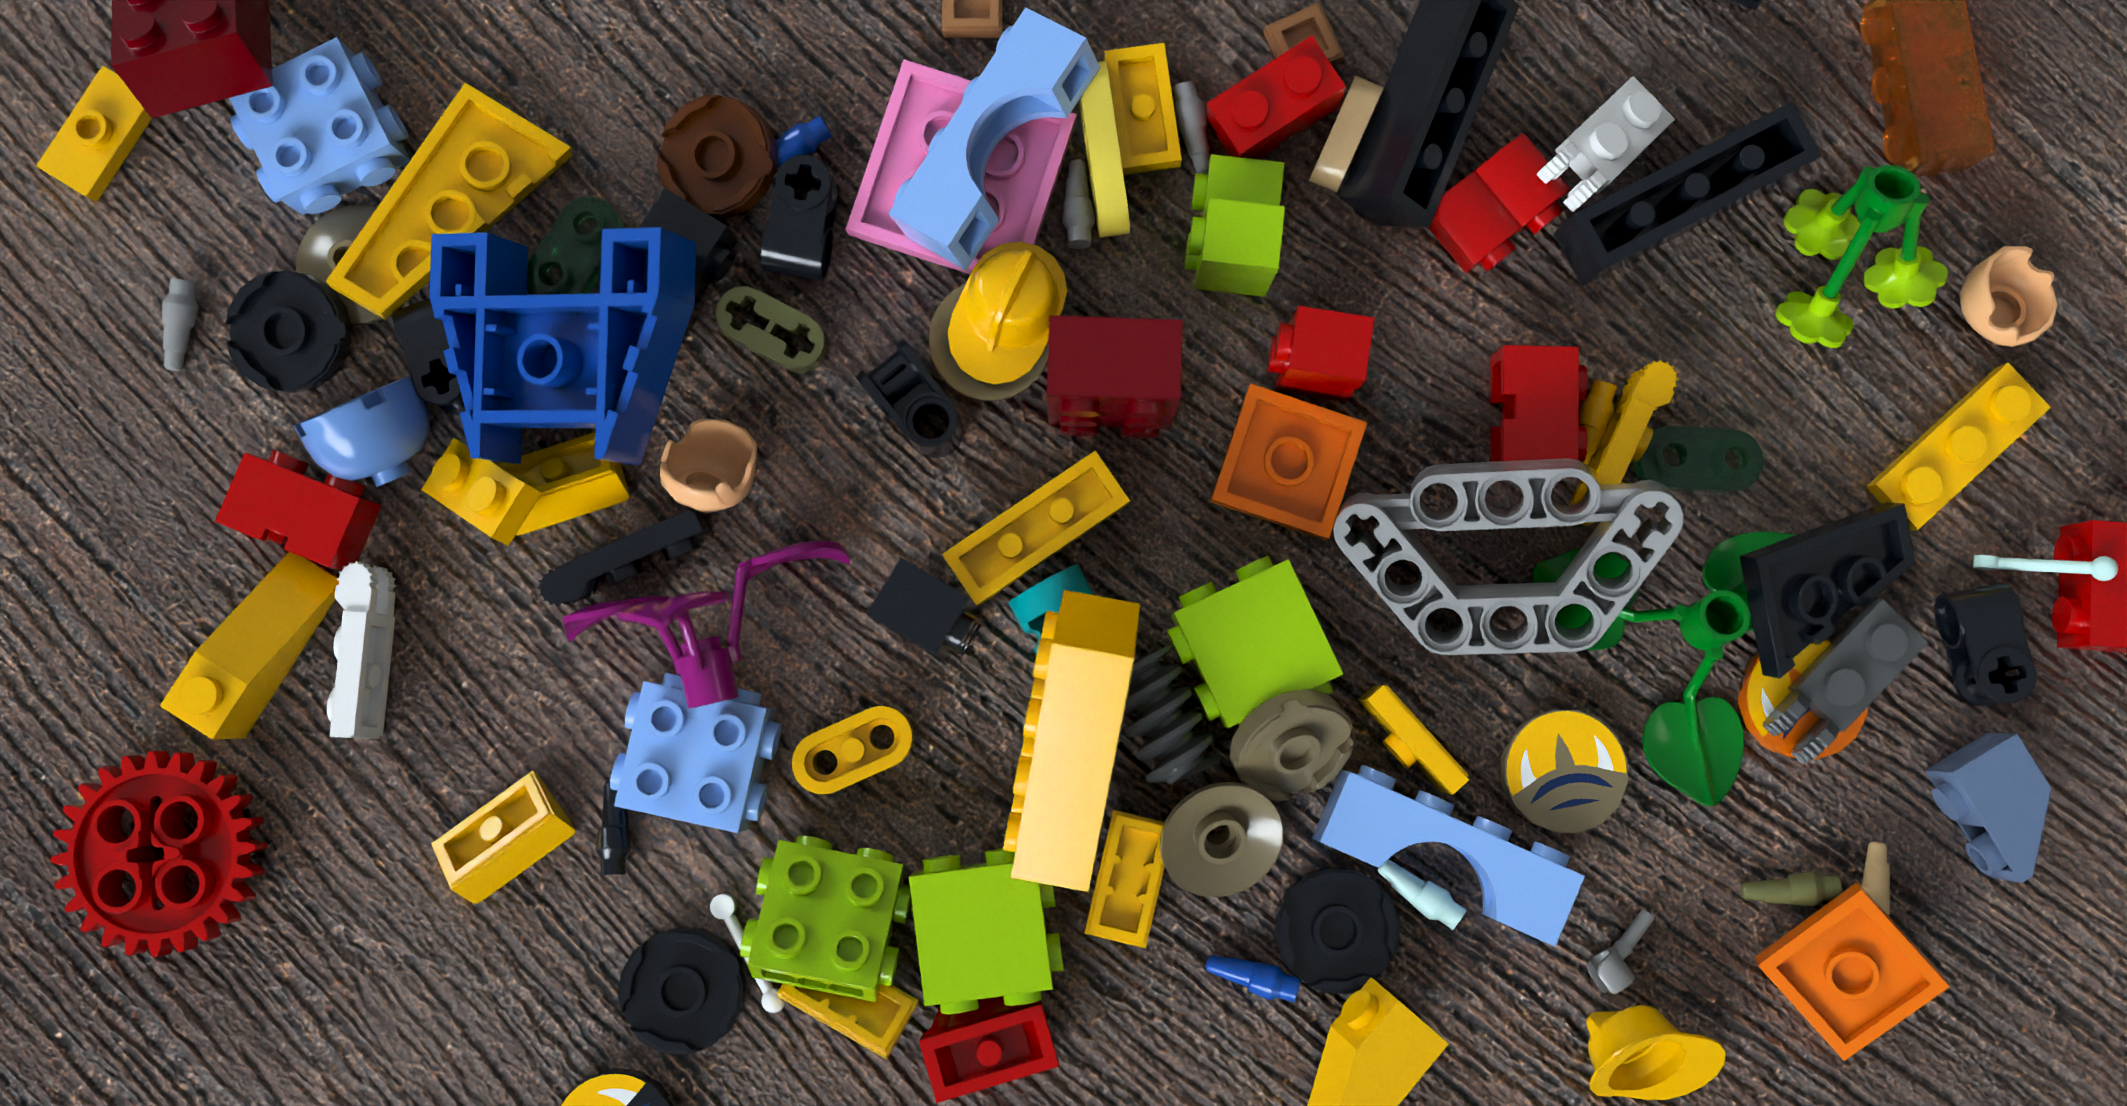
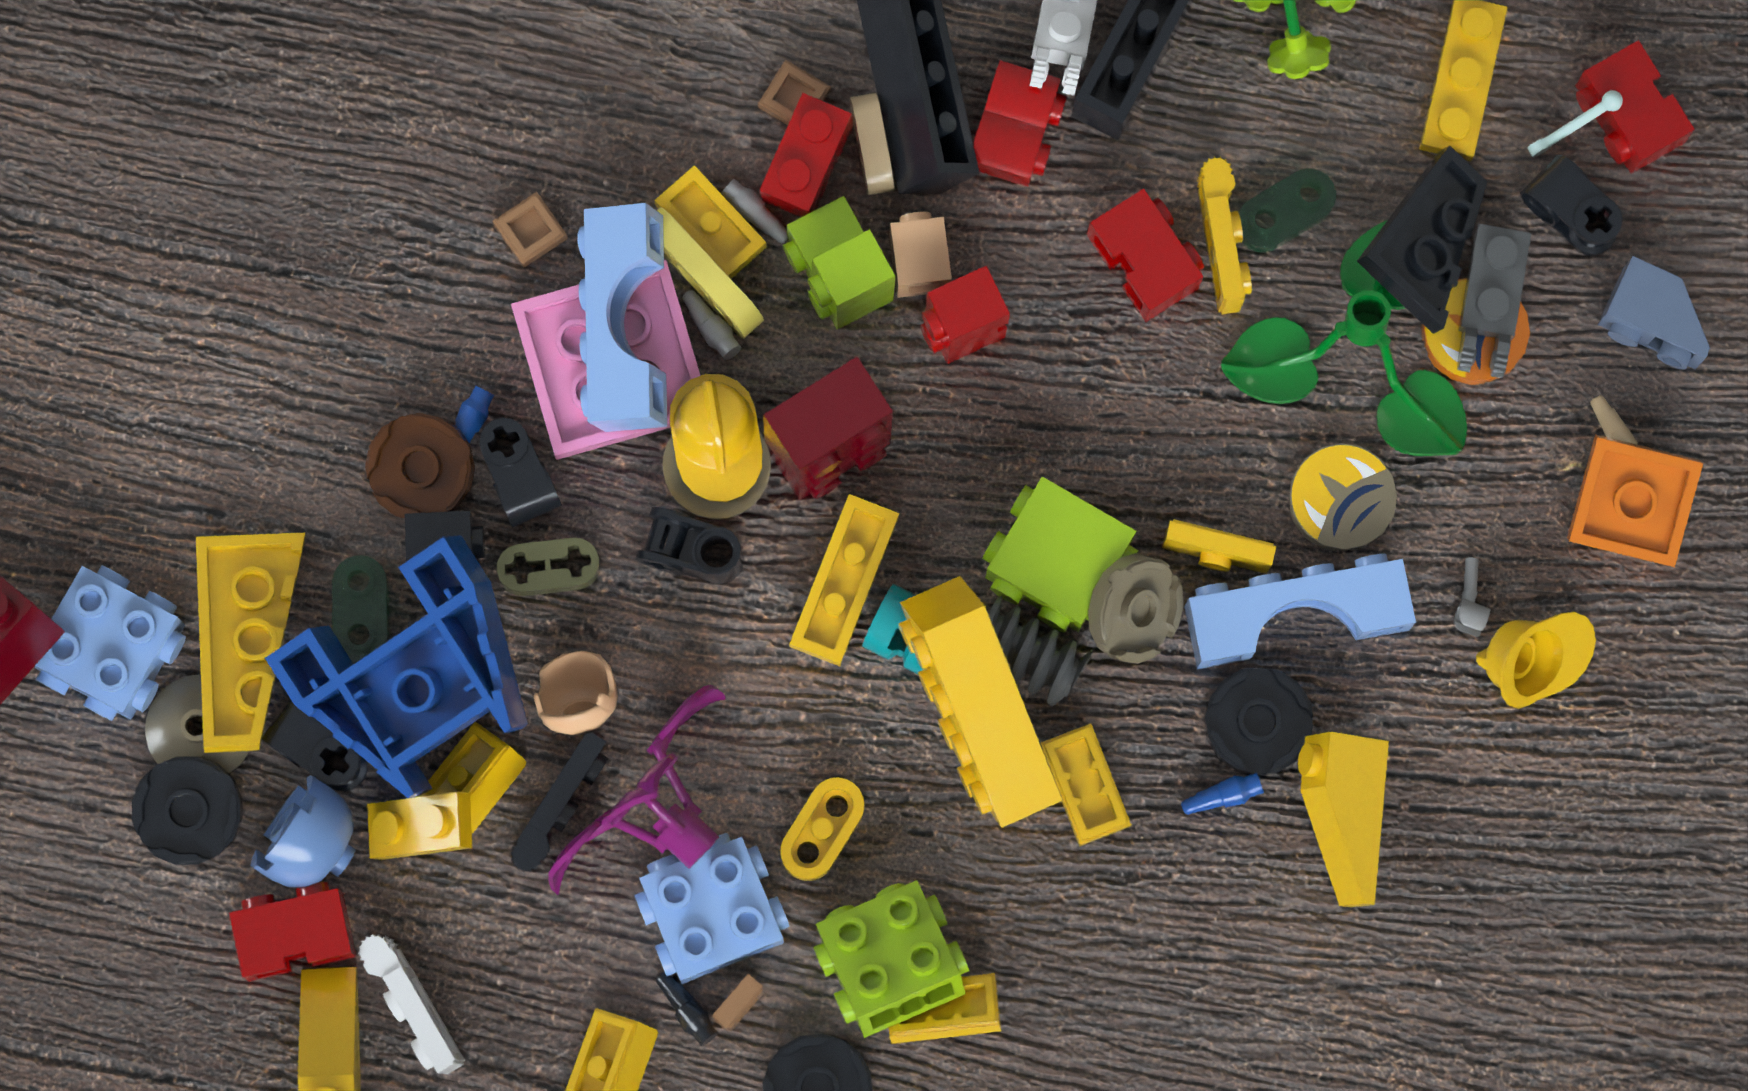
camera: 40 degrees left, 5 degrees down
(178, 317) = (95, 857): light grey piece -> none
(660, 861) = (738, 1003): none -> medium nougat tile
(724, 907) = (806, 1010): white hinge -> none
(926, 611) = (814, 685): black arch -> none
(982, 933) = (1007, 889): lime brick -> none
(986, 1047) = (1062, 967): red slope -> none
(1233, 857) = (1151, 714): dark tan dish -> none
(1288, 462) = (993, 409): orange plate -> none
(1319, 266) = (919, 254): none -> light nougat brick
(1426, 896) = (1306, 654): light aqua piece -> none
(1540, 633) = (1191, 322): light grey piece -> none
(1596, 414) = (1191, 228): yellow piece -> none
(1796, 889) = (1562, 470): olive piece -> none

